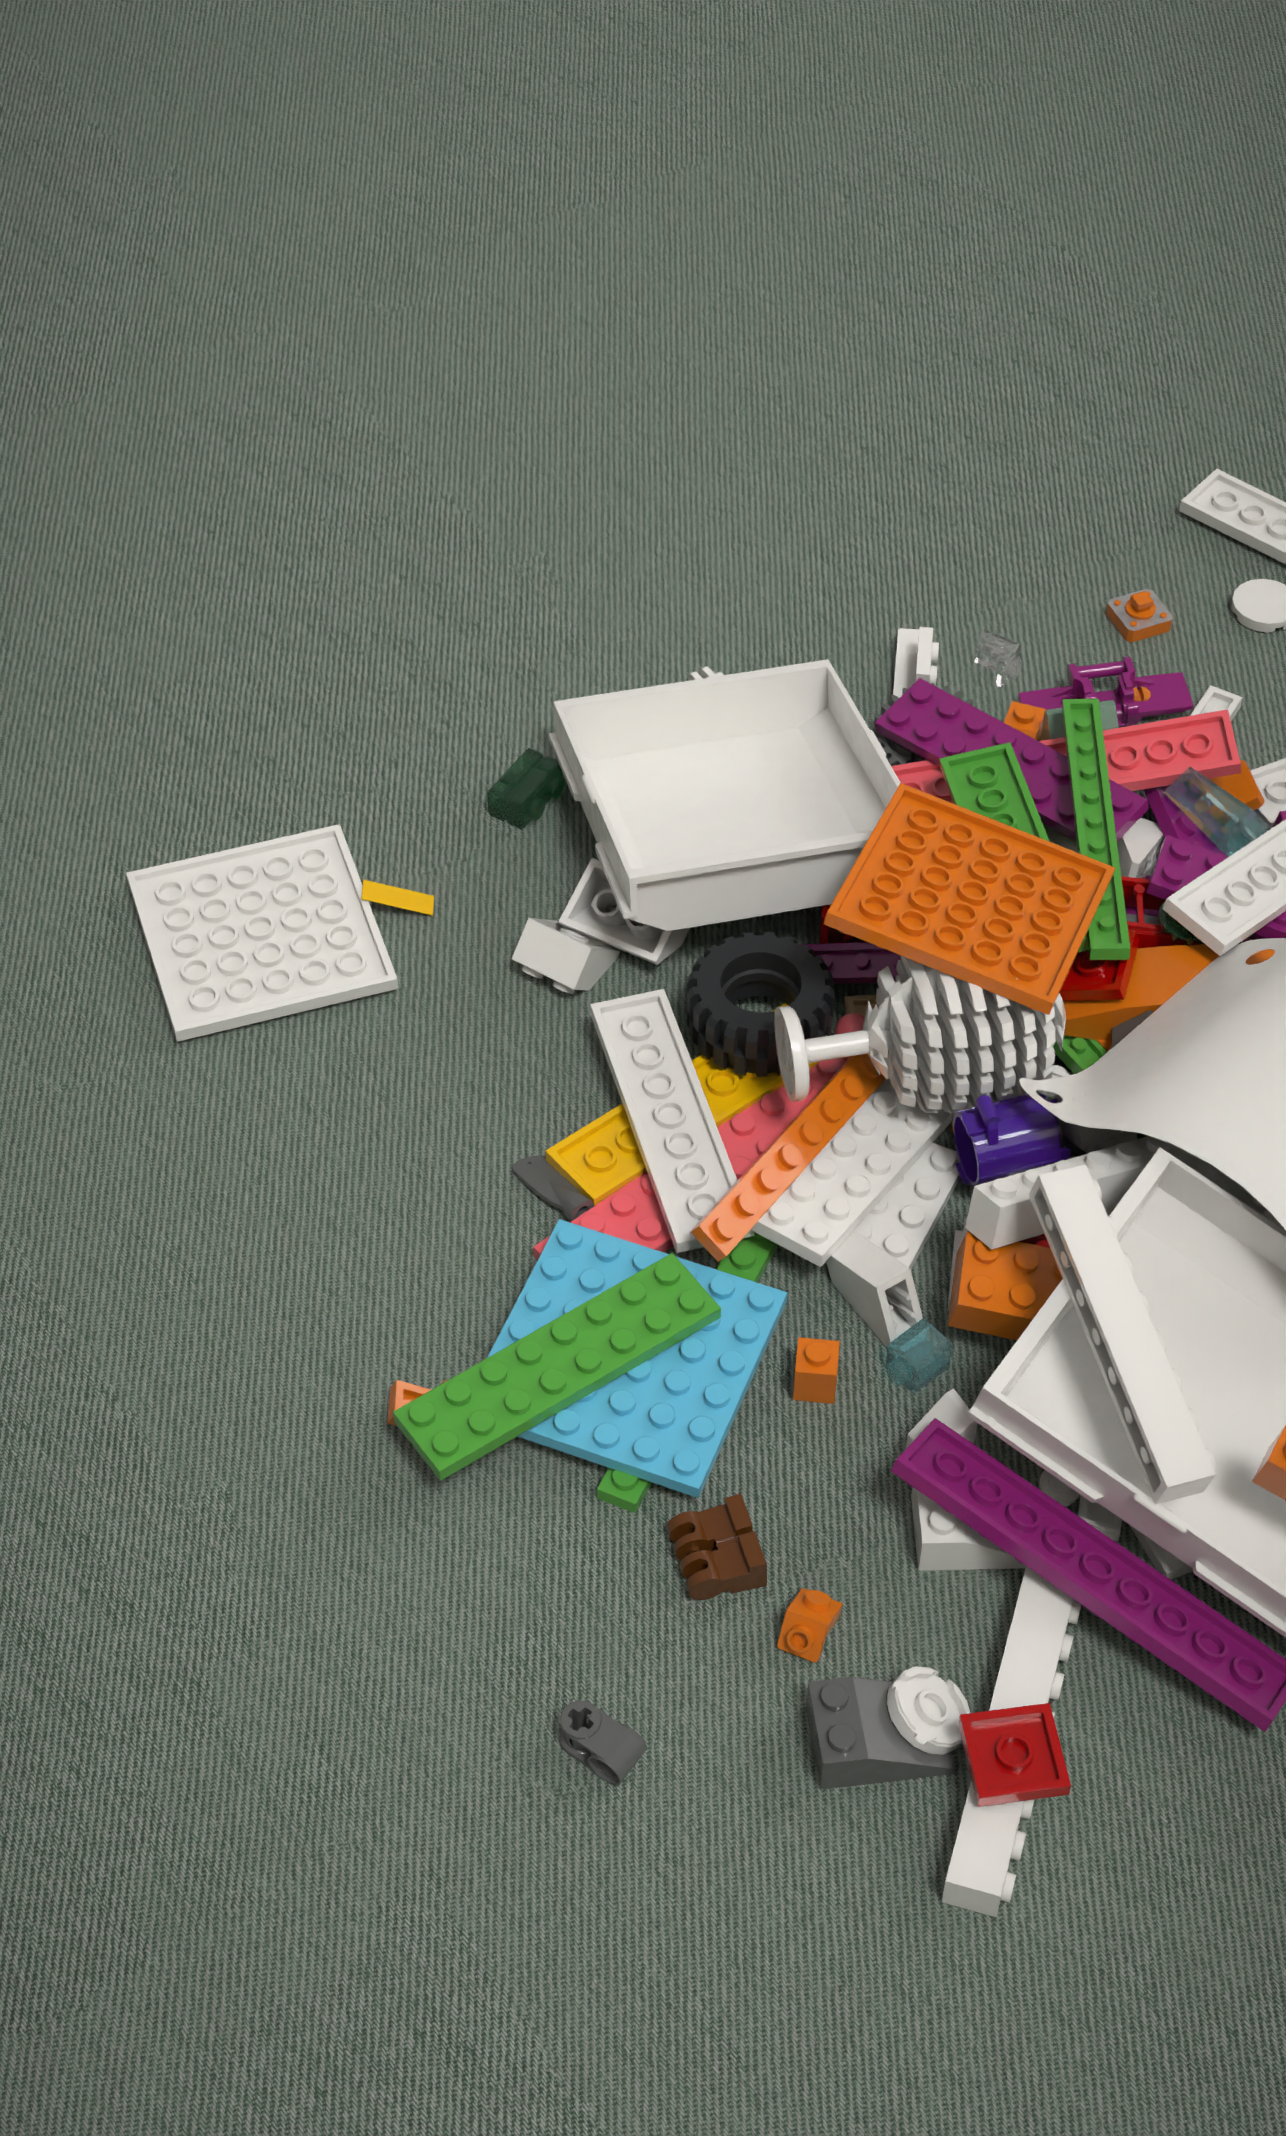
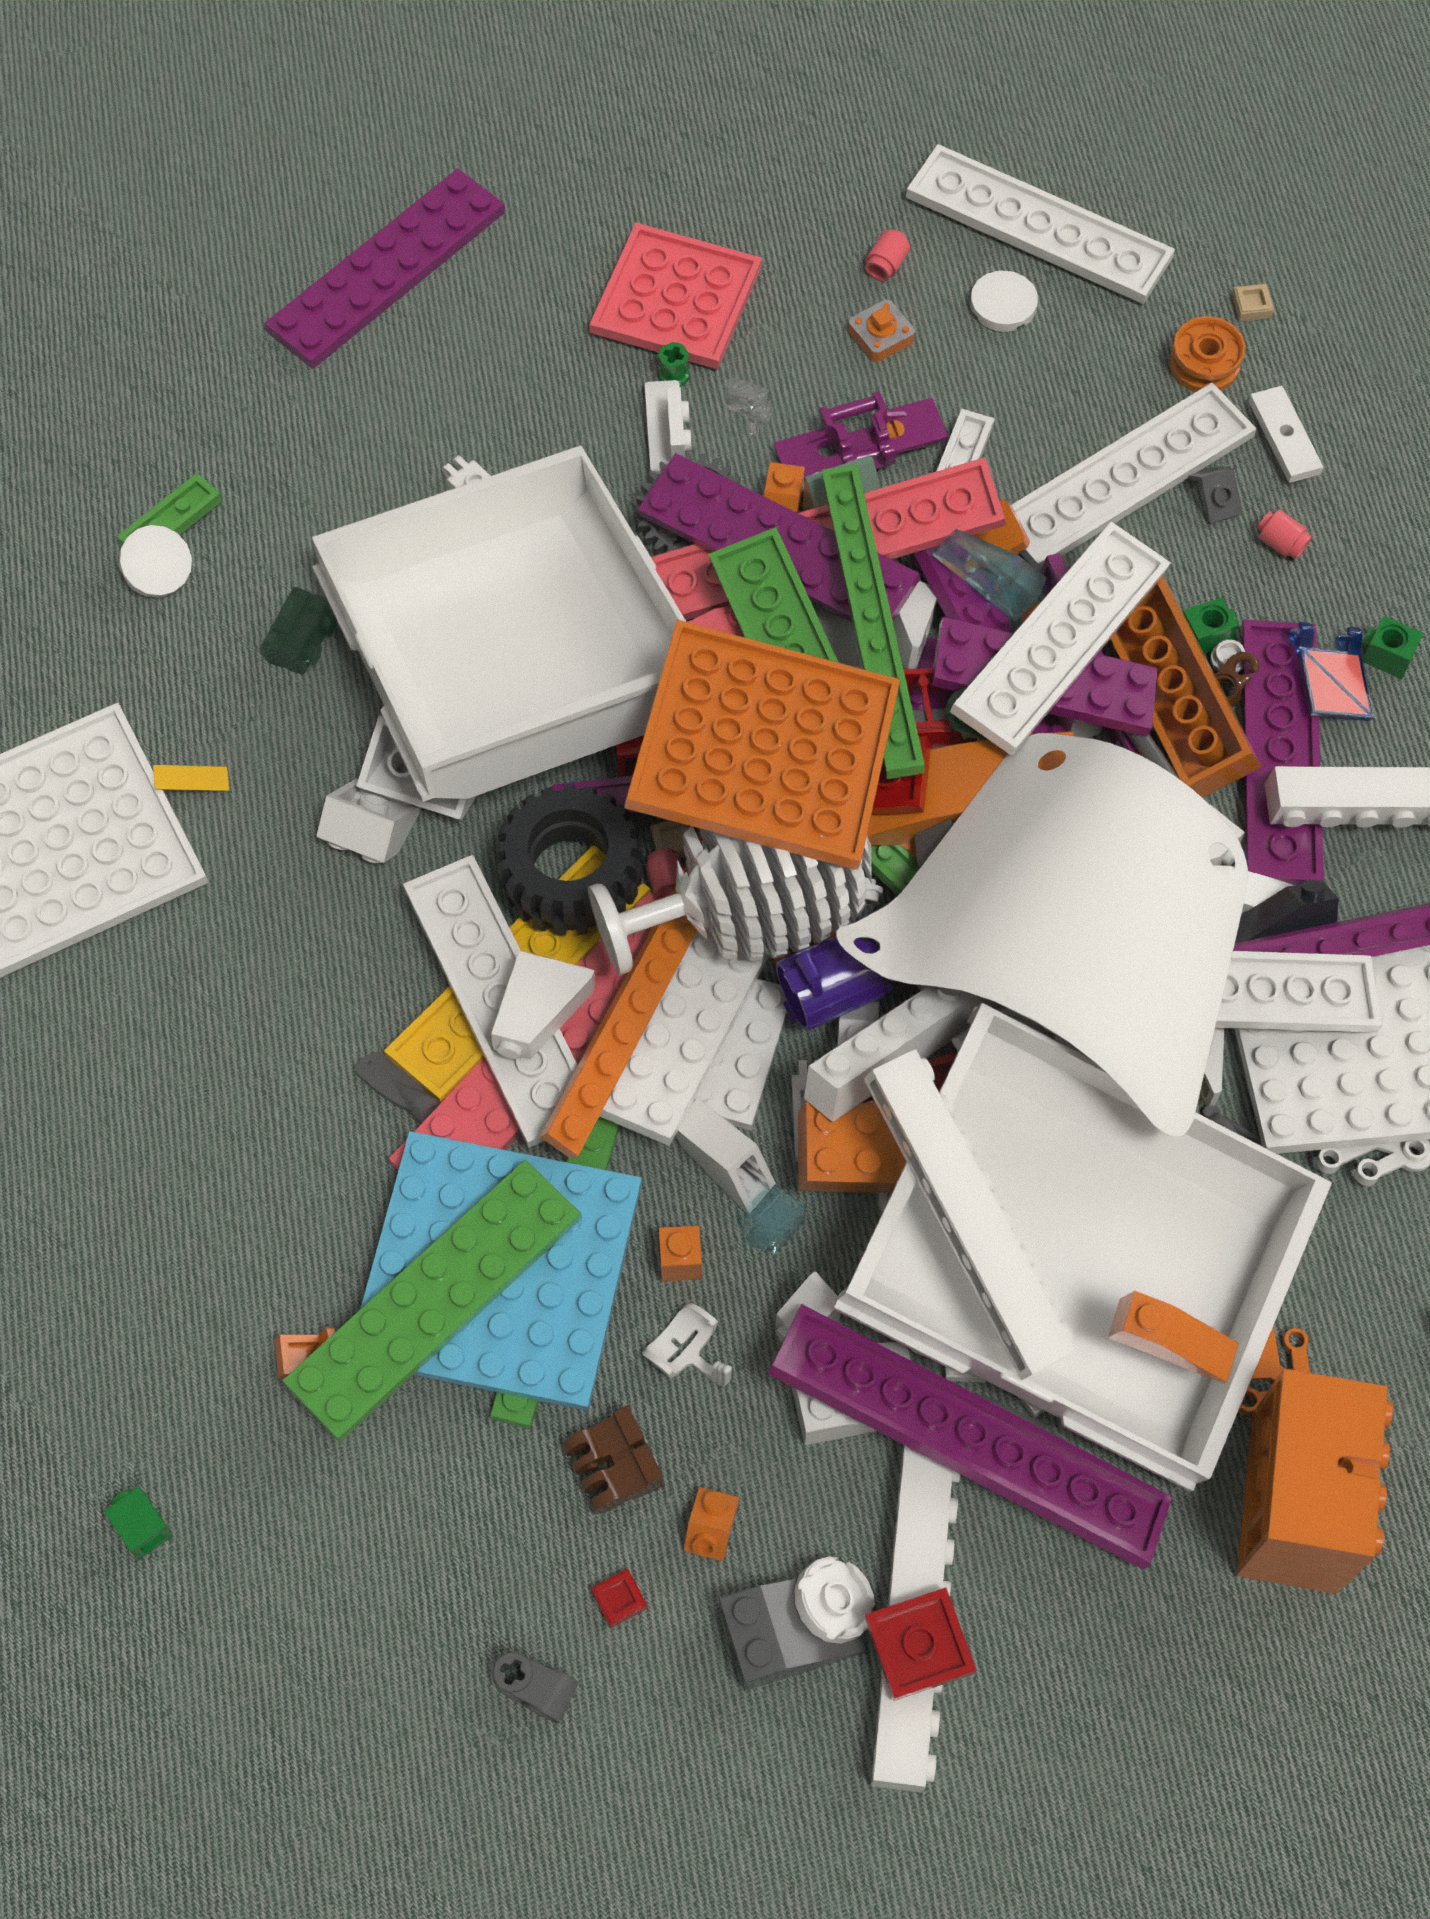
camera: 10 degrees left, 15 degrees up
(222, 1530) = (137, 1522): none -> green brick
(397, 713) = (155, 561): none -> white tile
(417, 683) = (179, 508): none -> bright green plate
(660, 509) = (384, 268): none -> magenta plate
(702, 1679) = (619, 1598): none -> red tile
(709, 1118) = (538, 1002): none -> white slope
(817, 1434) = (686, 1322): none -> white helmet
(929, 612) = (674, 361): none -> green bush
(940, 562) = (677, 293): none -> coral plate
(1153, 553) = (887, 255): none -> coral brick

